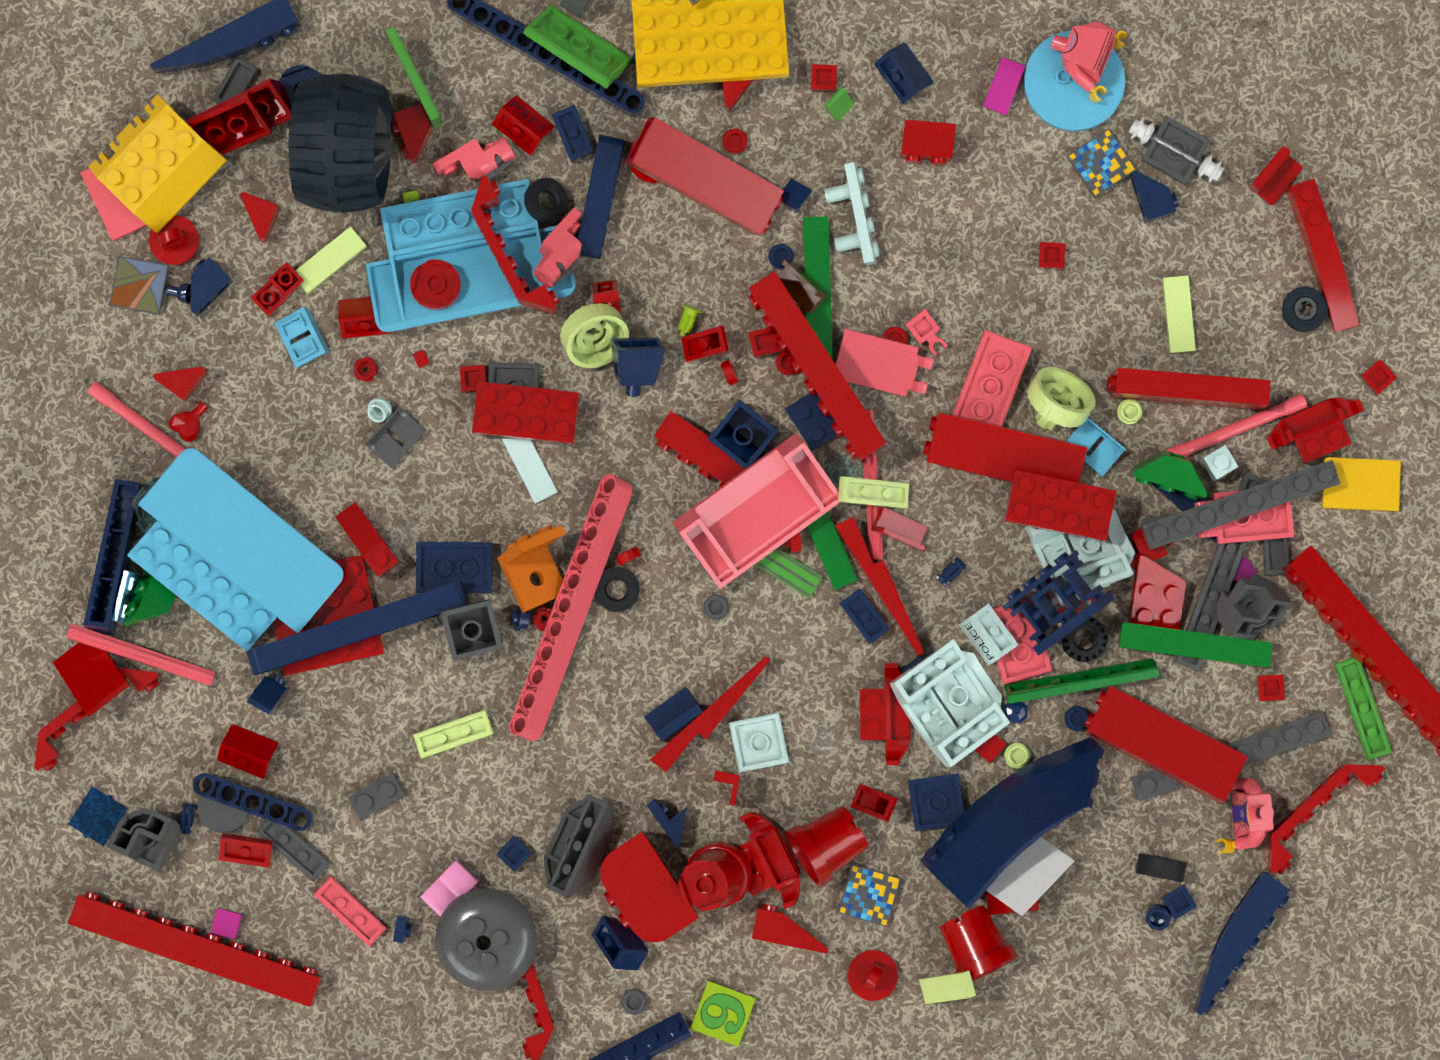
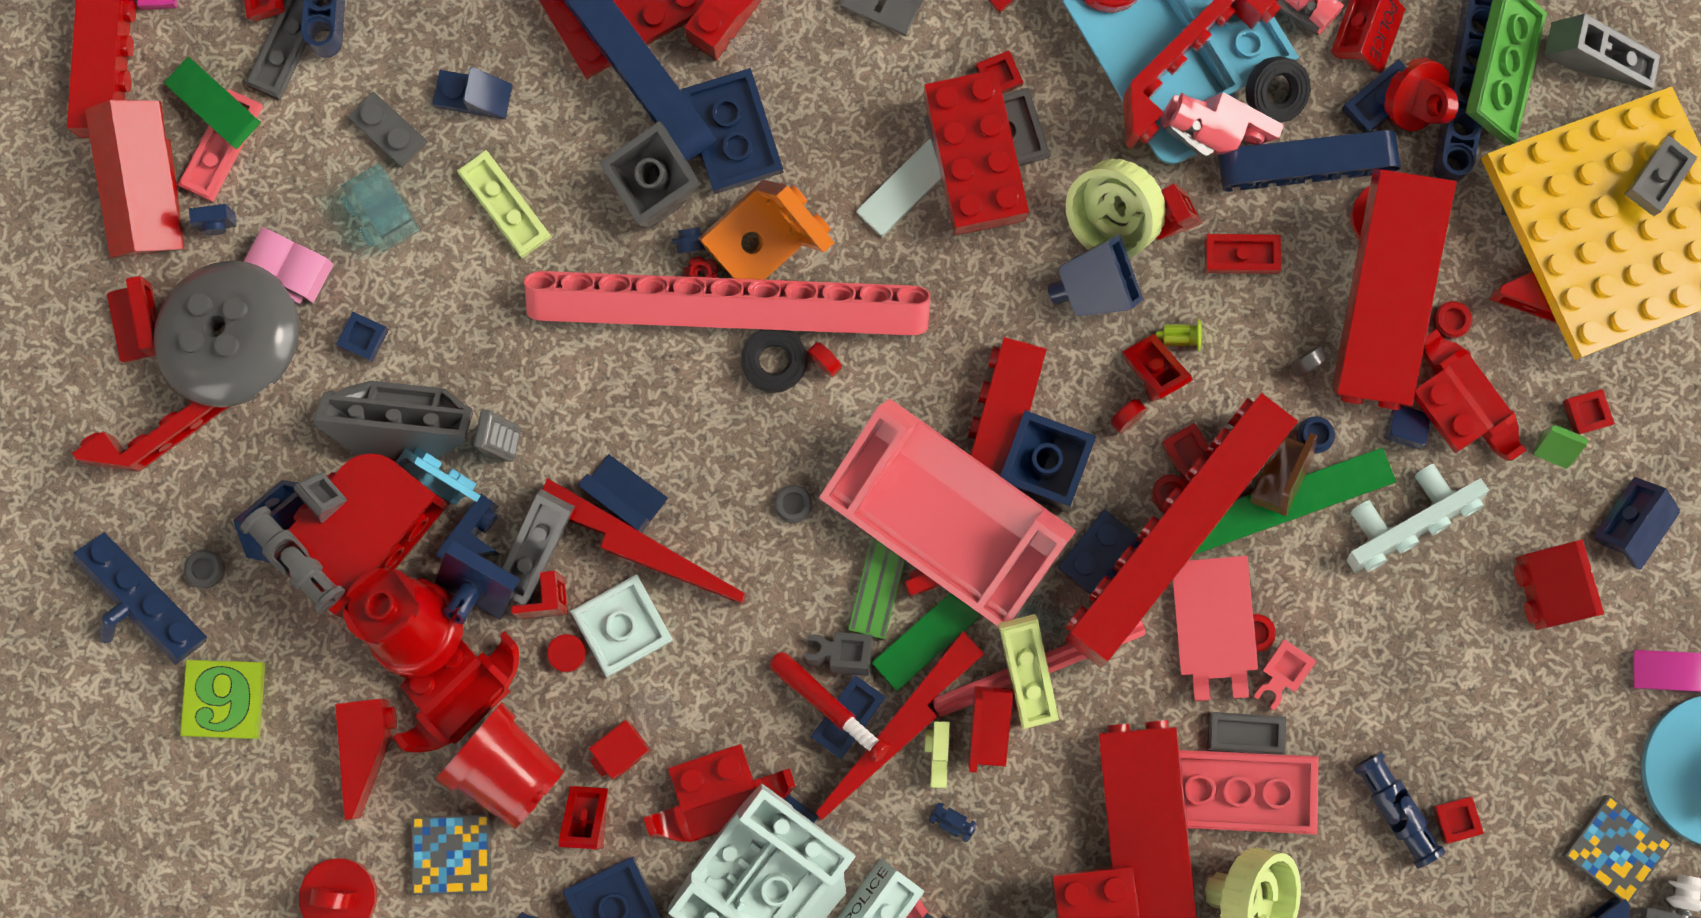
camera: 75 degrees right, 5 degrees down
(321, 906) = (212, 102): none -> green tile
(359, 972) = (135, 177): none -> slope
(370, 732) = (473, 93): none -> dark blue slope
(431, 816) = (380, 208): none -> clear light blue brick
(453, 1001) = (133, 319): none -> red panel
(582, 110) = (1421, 96): none -> red tile
(612, 783) = (496, 436): none -> dark grey slope
(620, 904) = (320, 496): none -> dark grey slope
(622, 833) = (426, 469): none -> medium azure piece
(647, 261) = (1243, 253): none -> red plate
(666, 927) = (293, 560): none -> dark grey piece
(692, 782) = (537, 543): none -> dark grey plate
(704, 826) = (474, 584): none -> dark blue tile
(732, 244) = (1308, 361): none -> dark grey tile
(765, 783) = (566, 653): none -> red tile
(791, 153) = (1465, 402): none -> red plate
(824, 604) = (846, 655): none -> dark grey plate
(839, 768) = (618, 751): none -> red brick
(849, 628) = (811, 690): none -> red piece
(899, 565) = (938, 743): none -> yellowish green plate
(955, 367) = (1246, 733): none -> dark grey tile
(1048, 286) = (1384, 792): none -> dark blue piece

